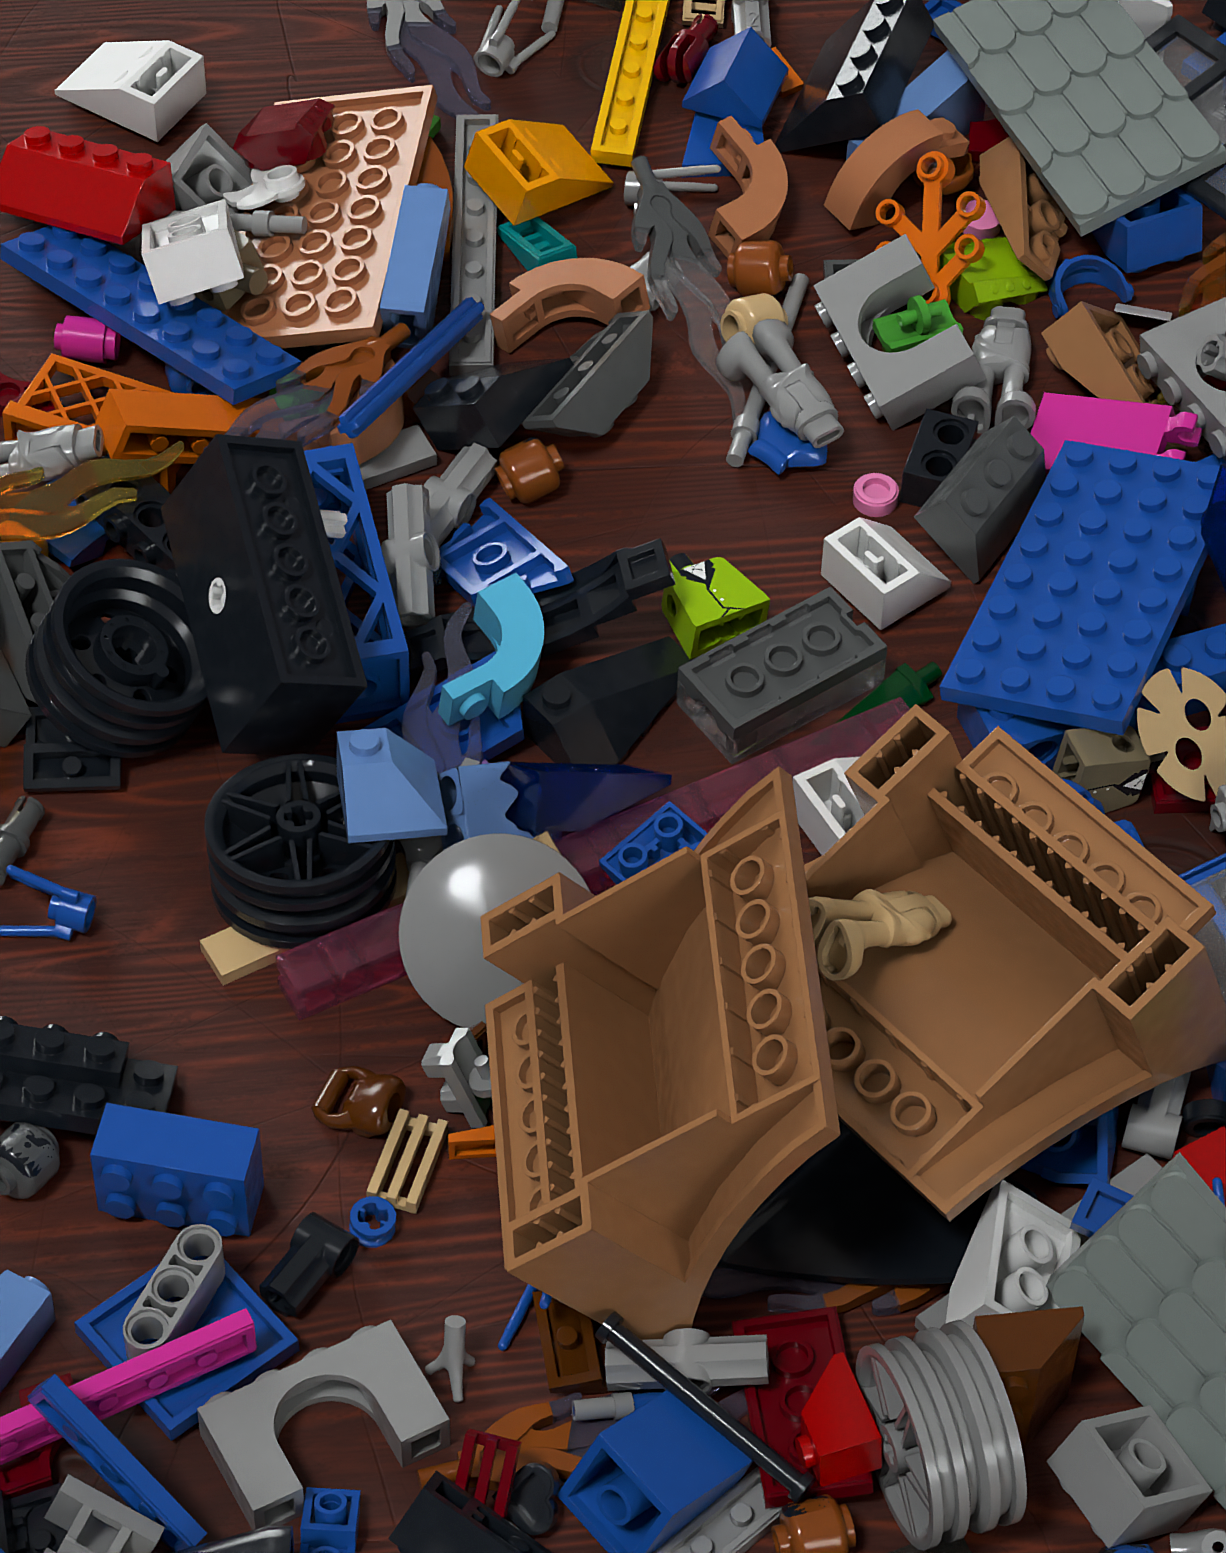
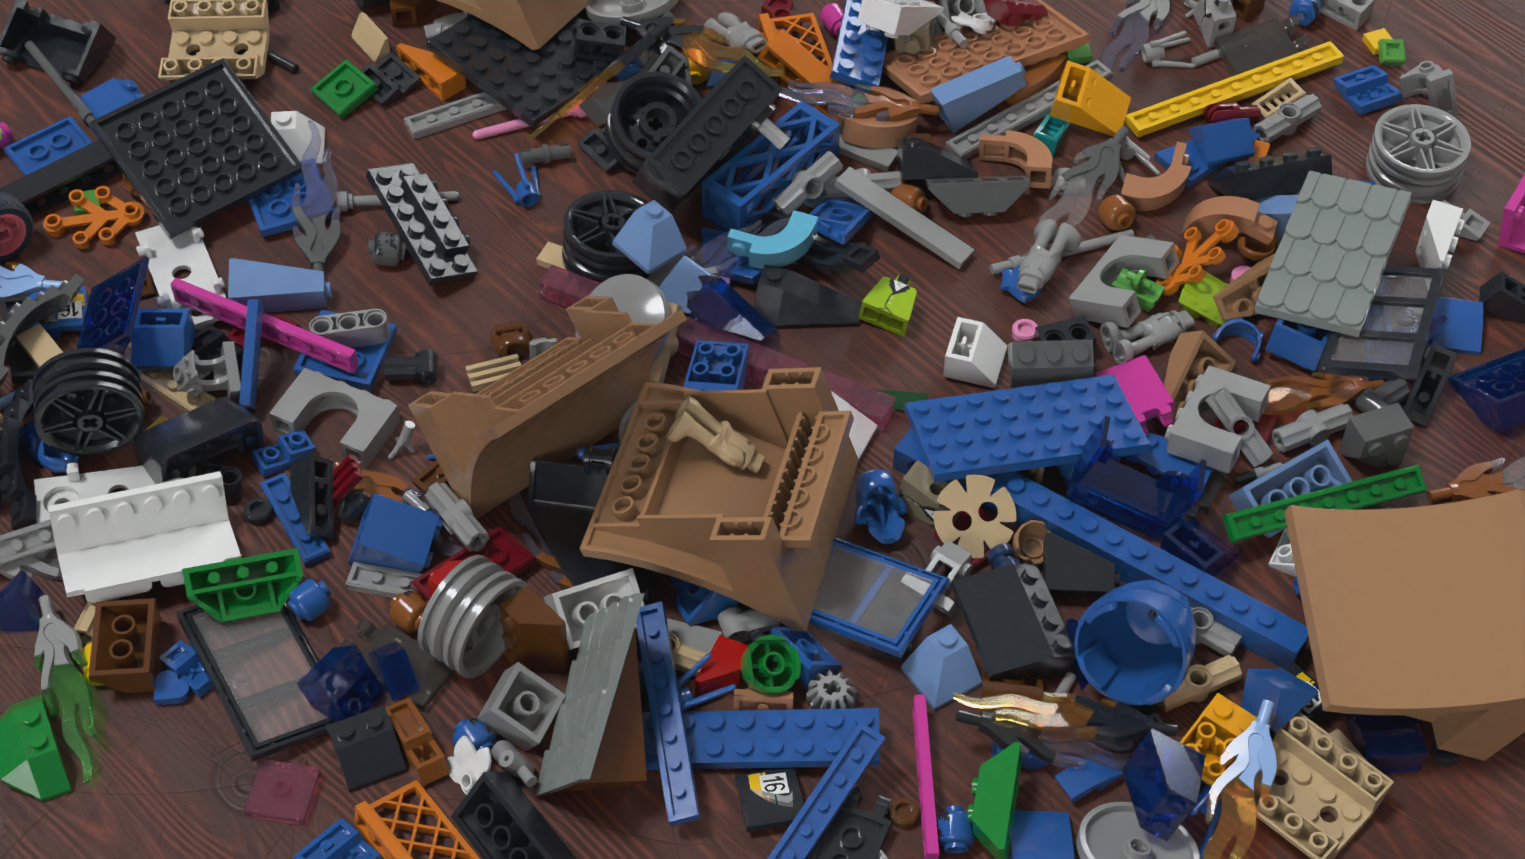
camera: 55 degrees right, 0 degrees up
(177, 1169) = (414, 296): blue brick -> none
(383, 1212) = (454, 371): blue bush -> none
(410, 368) = (913, 122): blue axle -> none
(562, 491) = (904, 217): none -> light grey tile
(705, 1407) = (420, 586): black bar -> none
(747, 311) = (1077, 220): tan head -> none
(780, 675) = (870, 349): dark grey piece -> none
(1143, 312) = (1247, 368): white sticker -> none

